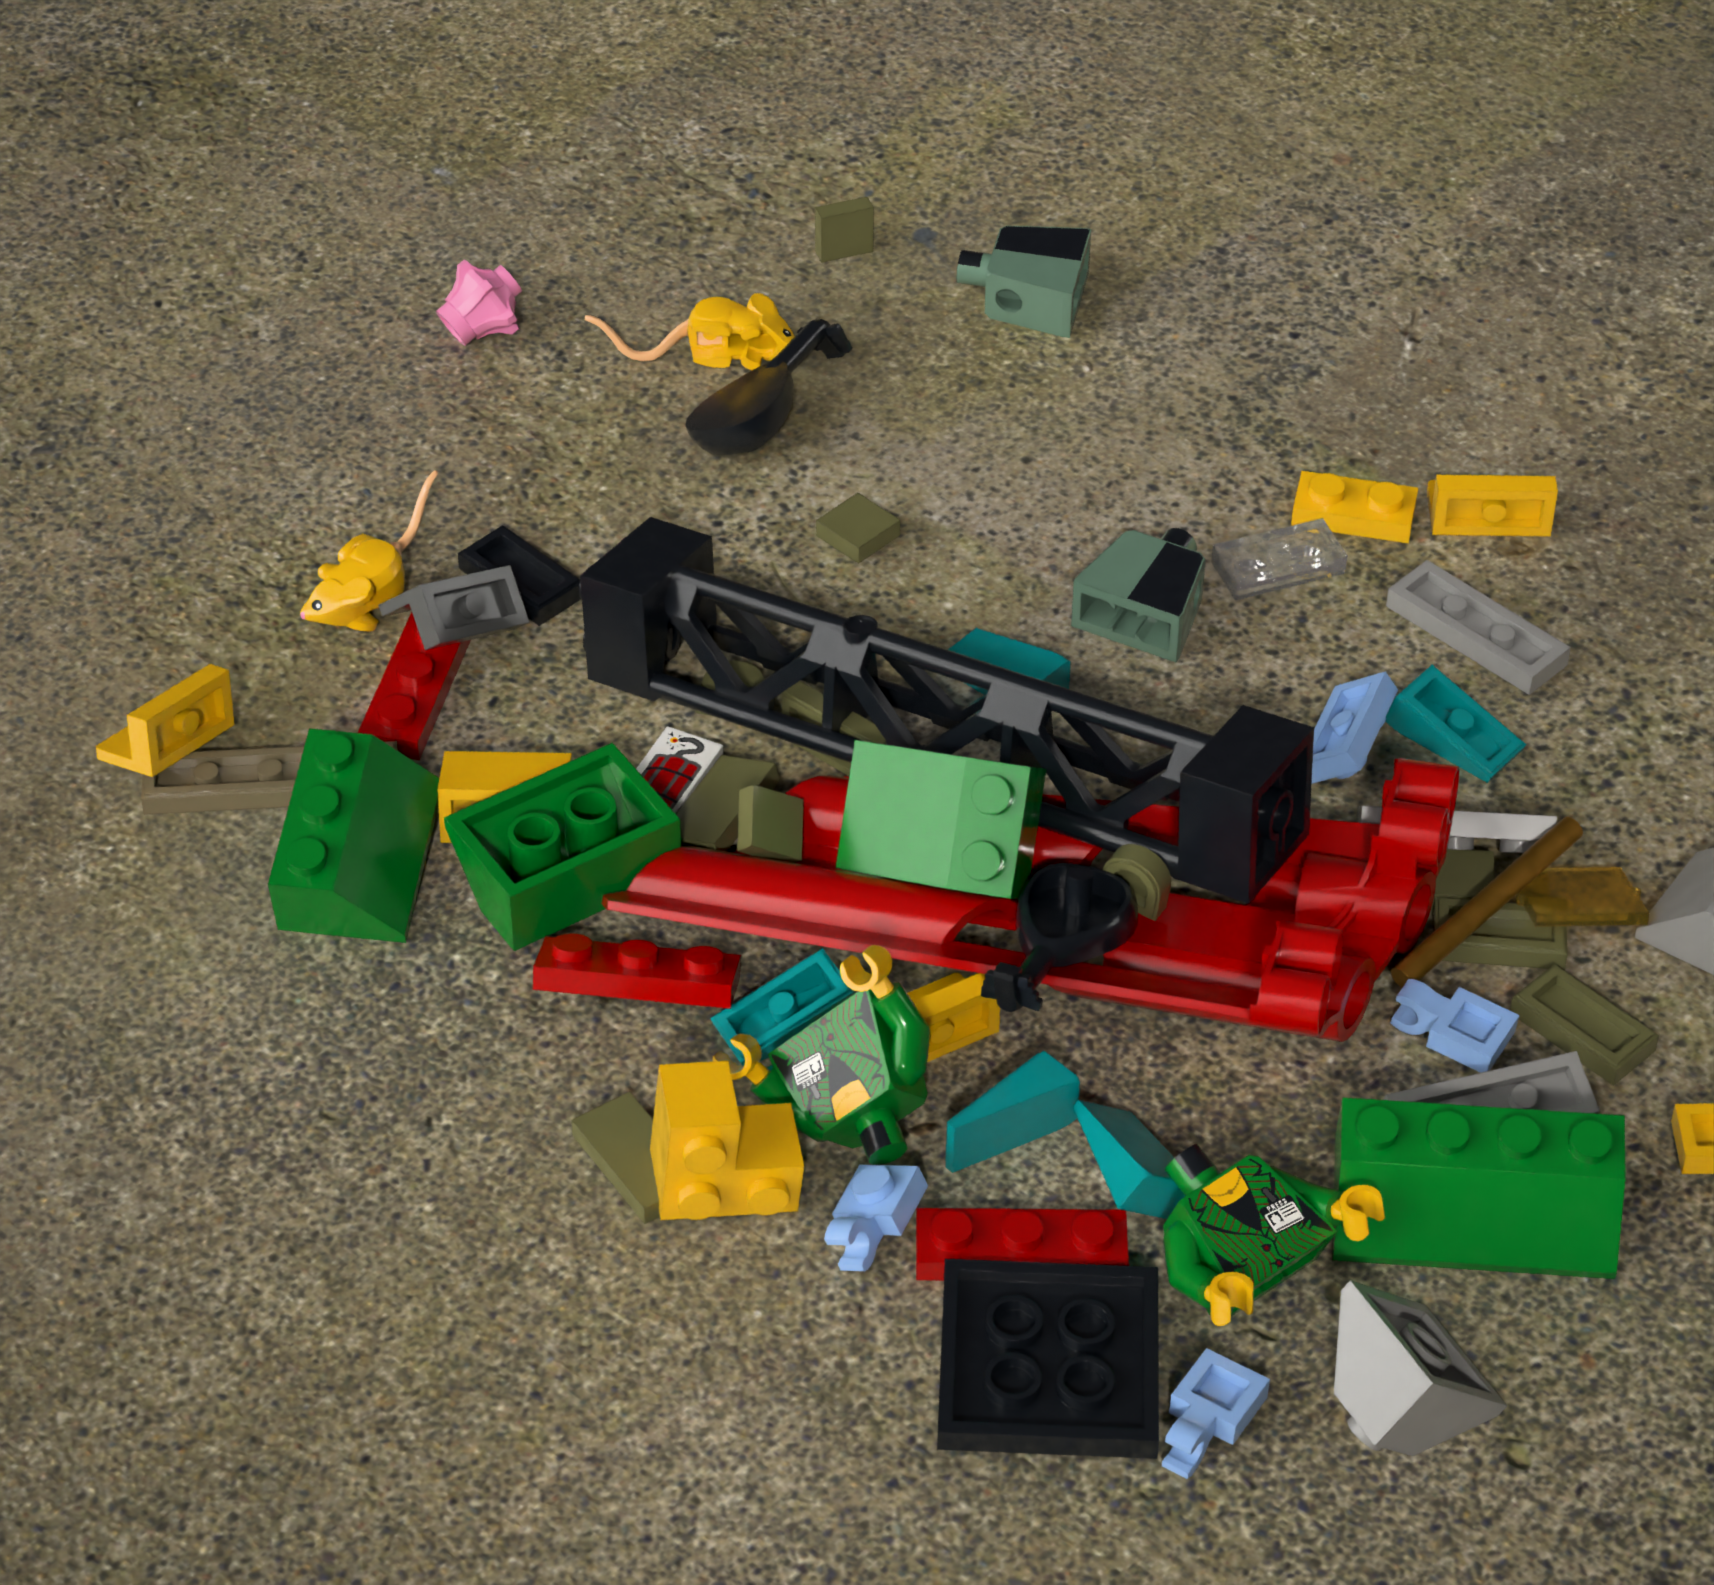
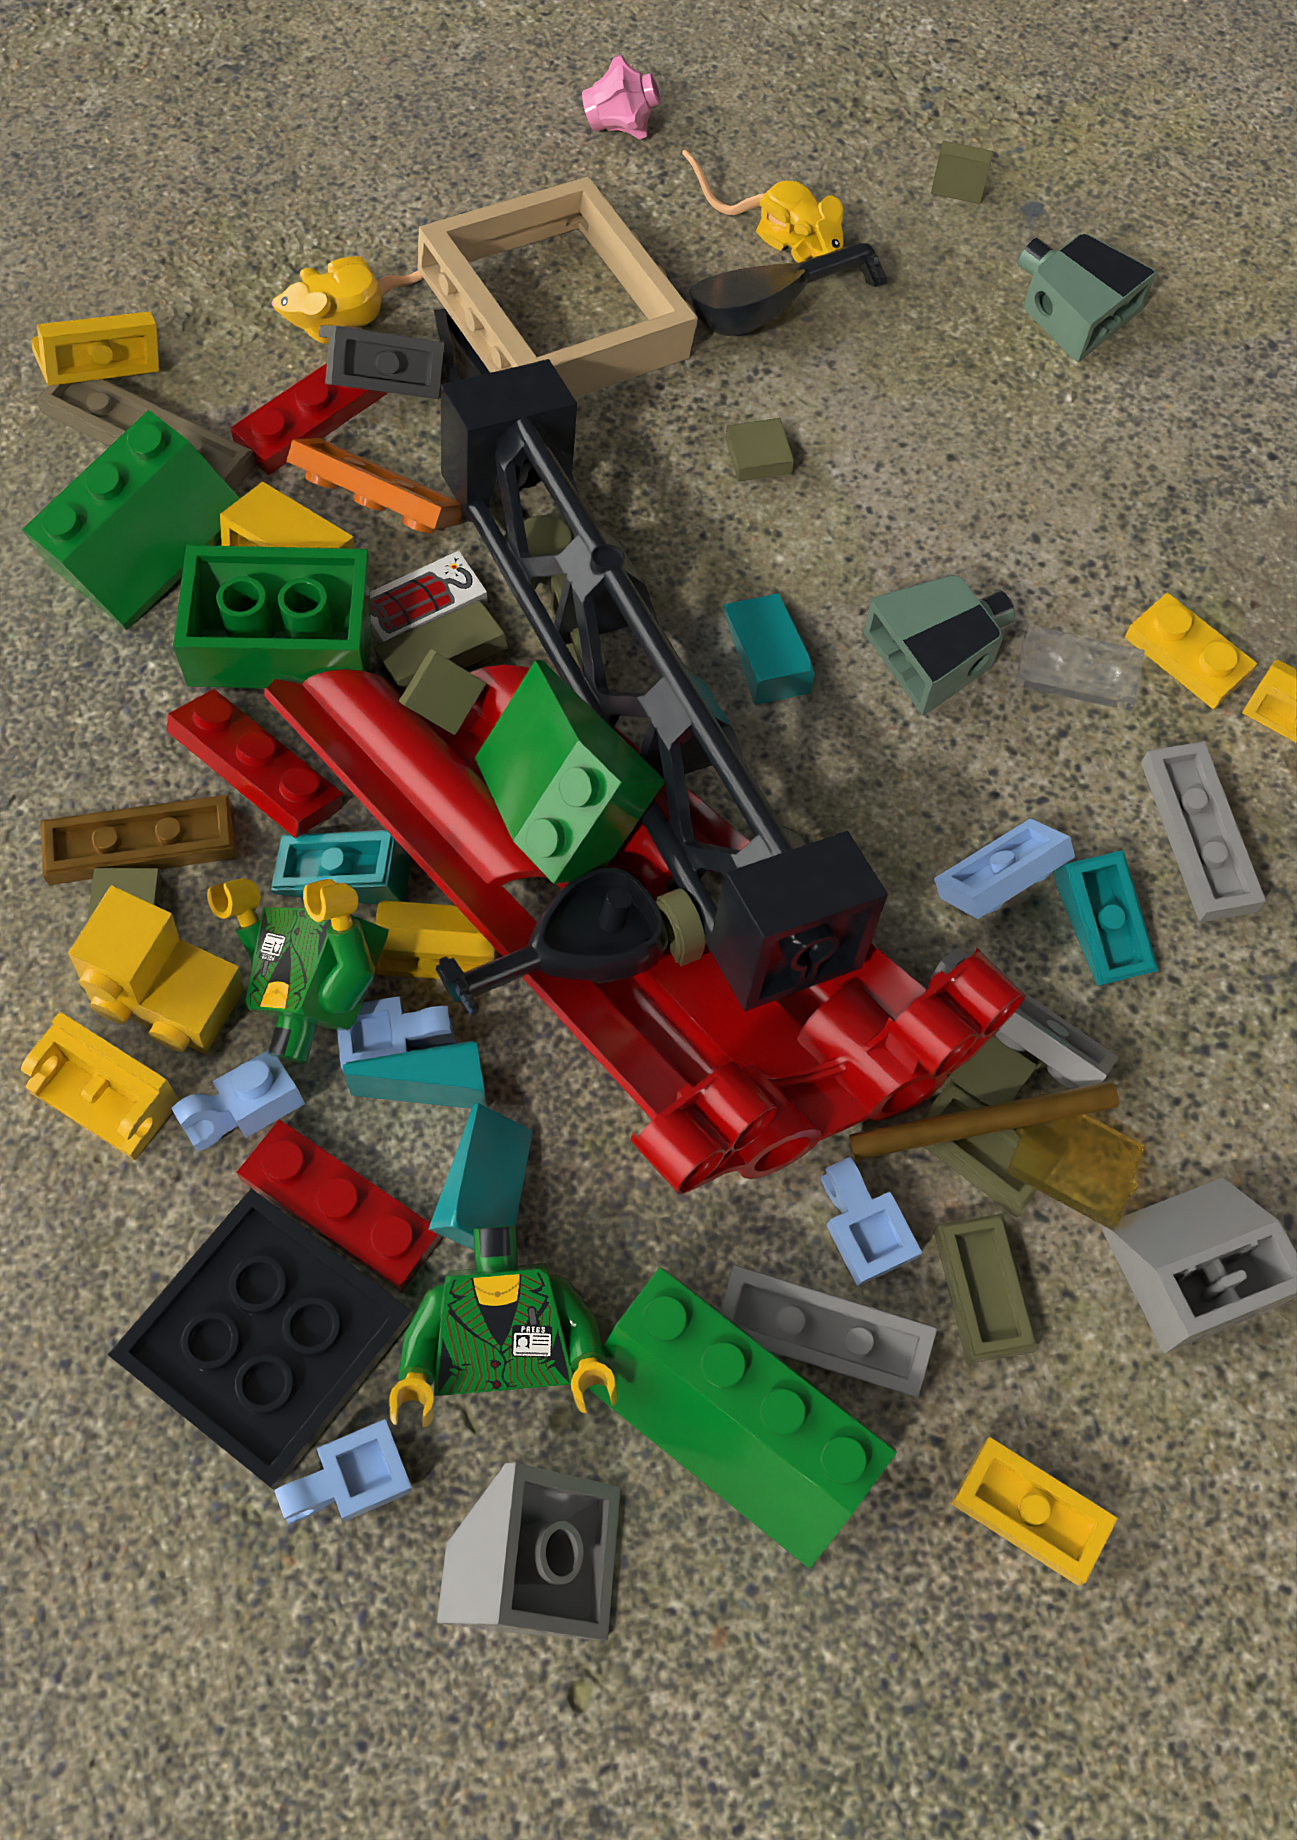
camera: 30 degrees right, 20 degrees up
(540, 533) = (586, 366): none -> tan window
(542, 713) = (374, 485): none -> orange plate
(603, 1068) = (138, 838): none -> pearl gold tile
(738, 1264) = (98, 1086): none -> yellow hinge
(951, 1094) = (386, 1030): none -> light blue plate

